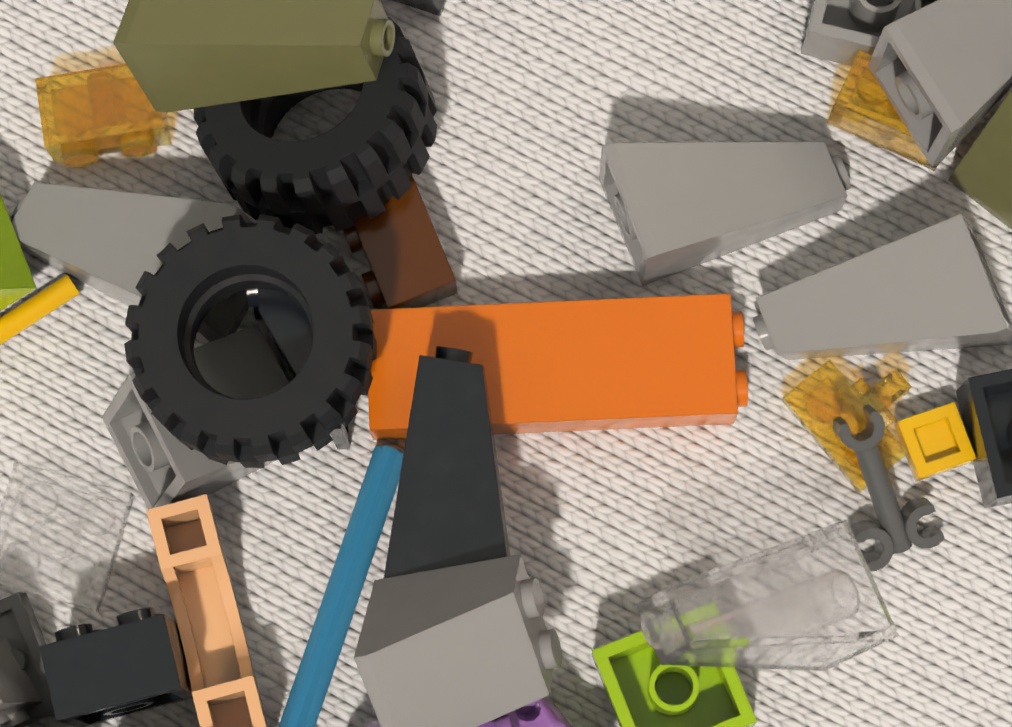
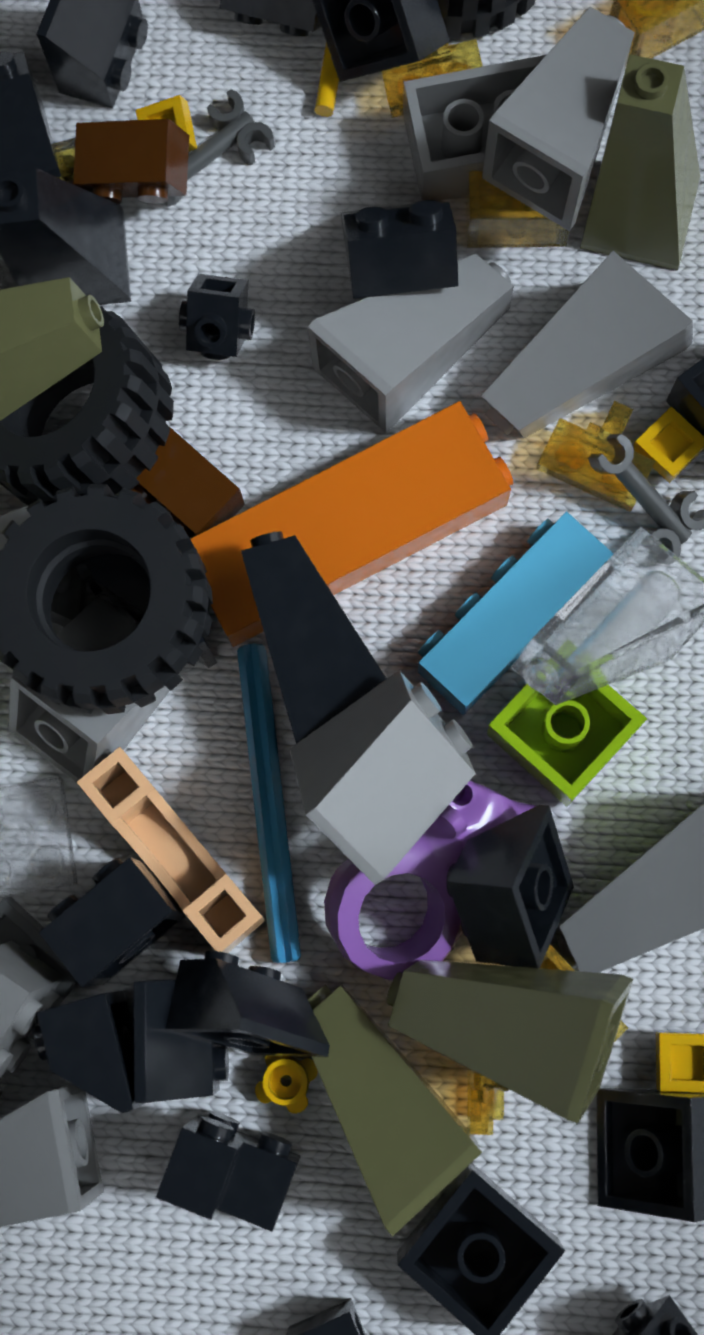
camera: 20 degrees left, 0 degrees up
(520, 81) = (216, 316): none -> black brick
(679, 542) = (504, 620): none -> medium azure brick
(743, 97) = (401, 248): none -> black slope

